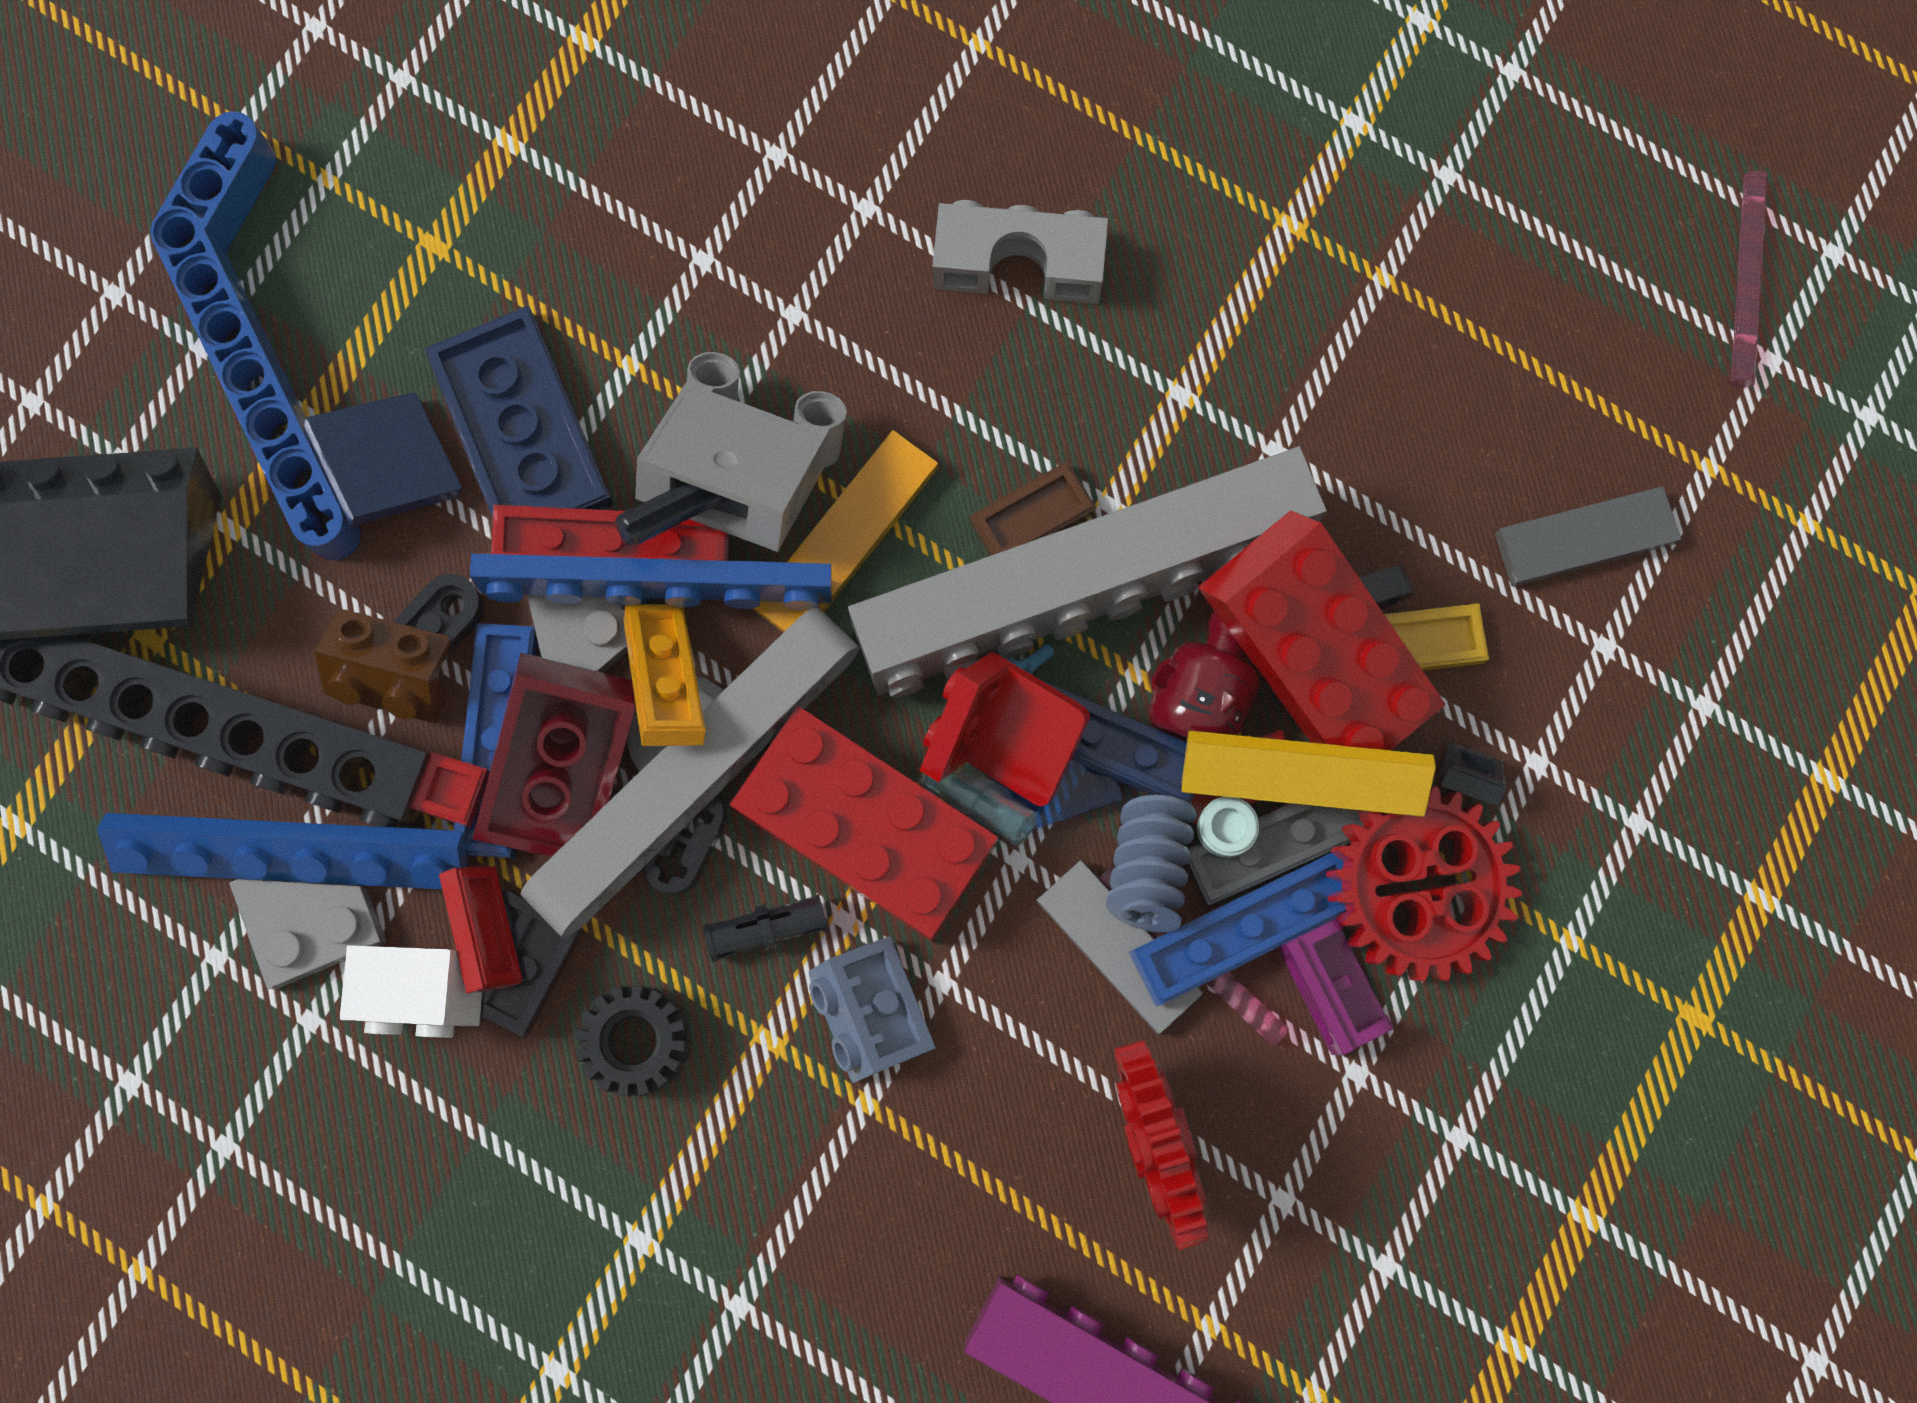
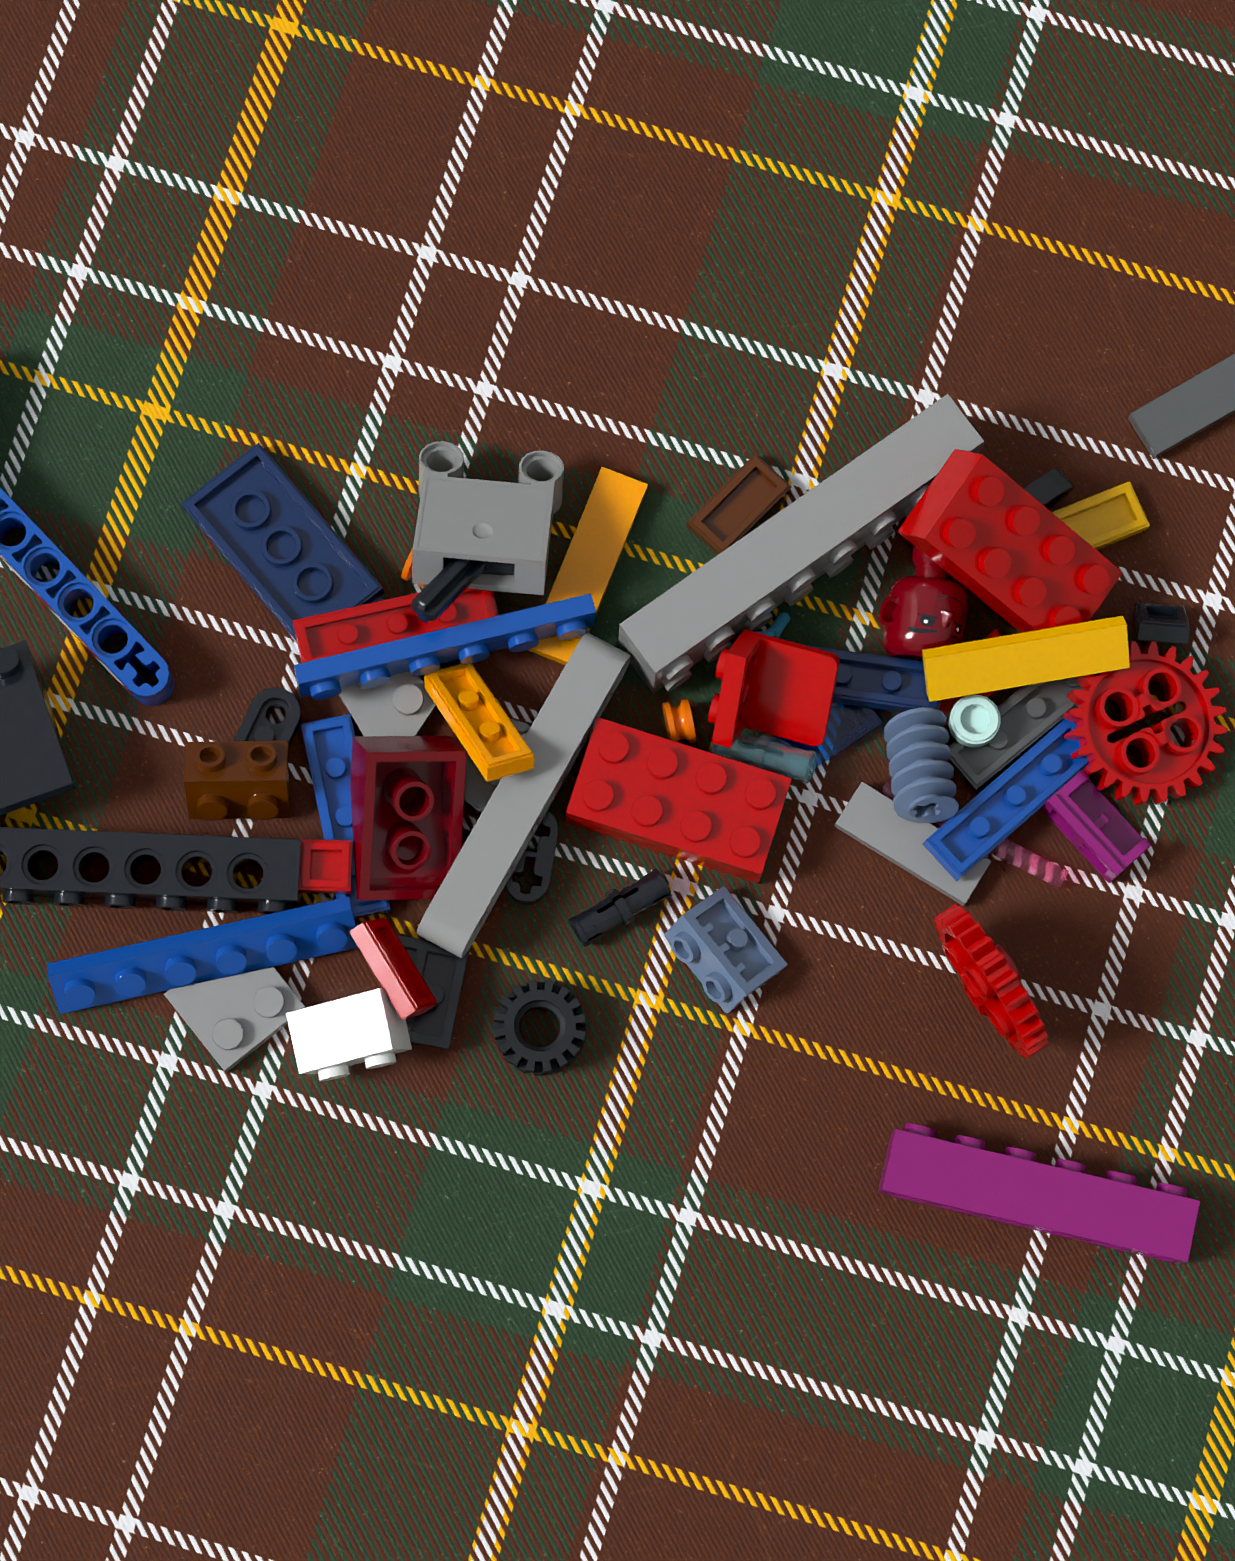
camera: 20 degrees left, 0 degrees up
(382, 458) = (180, 607): dark blue tile -> none
(893, 736) = (679, 721): none -> orange bush
(977, 237) = (704, 272): light grey arch -> none

